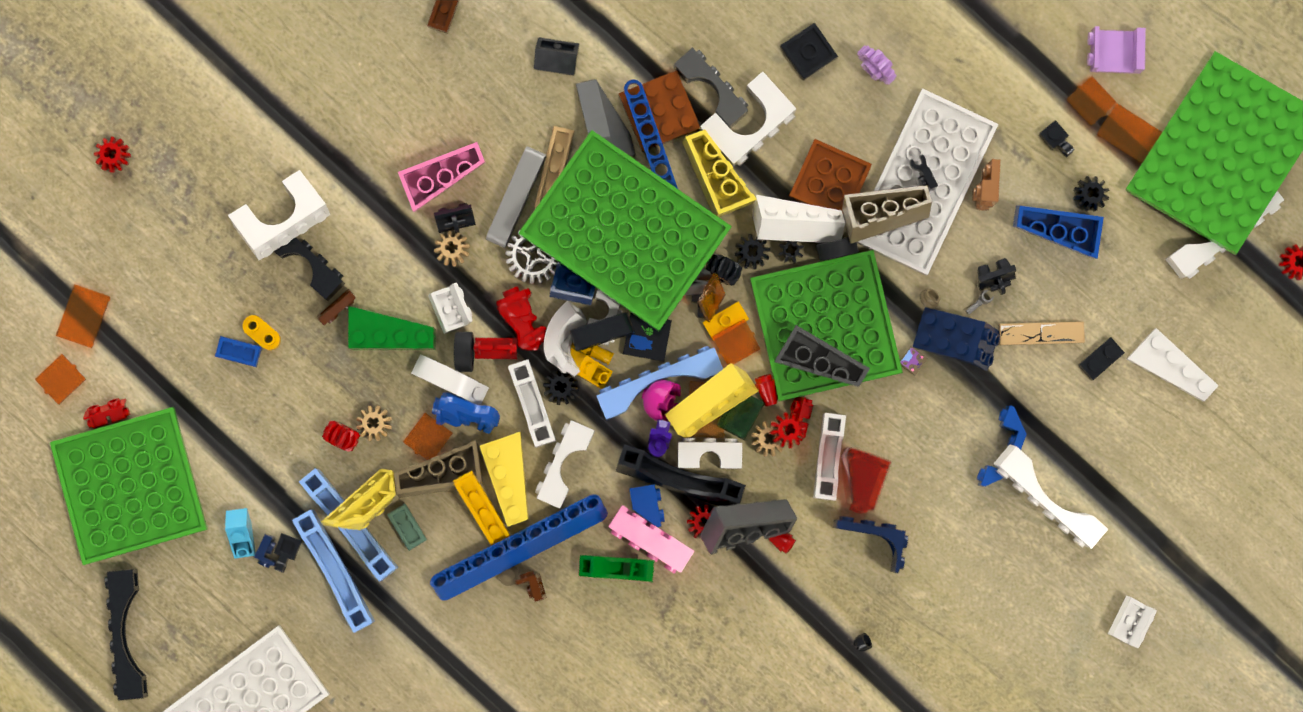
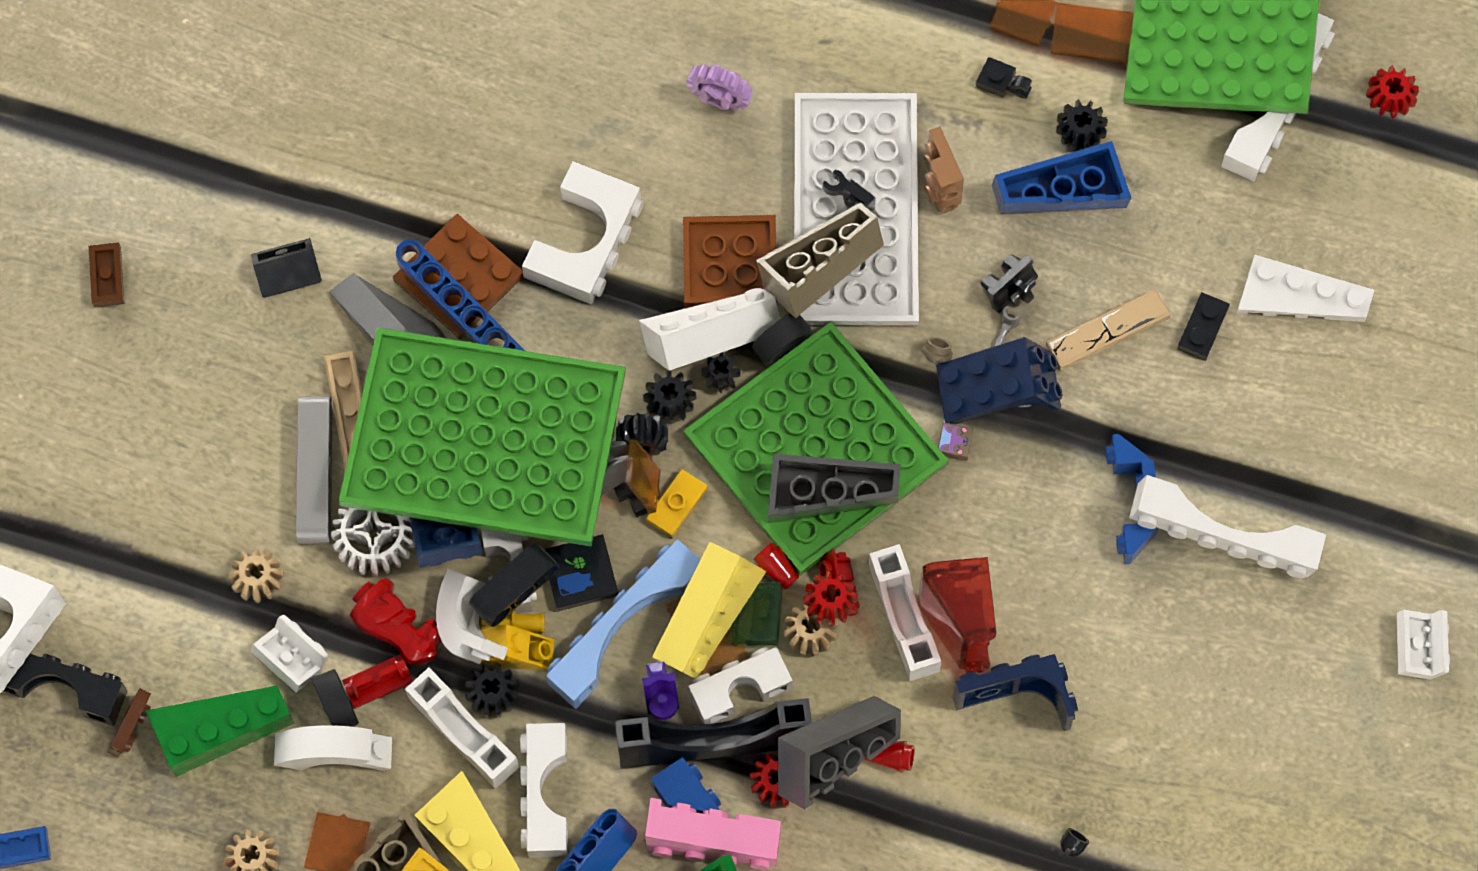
camera: 20 degrees left, 15 degrees down
(261, 332) = (36, 809): yellow plate -> none
(437, 175) = (192, 487): bright pink wedge -> none
(454, 218) = (242, 533): black hips -> none
(457, 411) = (363, 783): blue animal -> none
(660, 398) = (636, 640): dark pink cylinder -> none
(694, 68) = (480, 200): dark grey arch -> none
(716, 175) = (572, 318): light yellow wedge -> none
(736, 342) = (704, 521): clear orange piece -> none
(809, 51) = (622, 115): black tile -> none

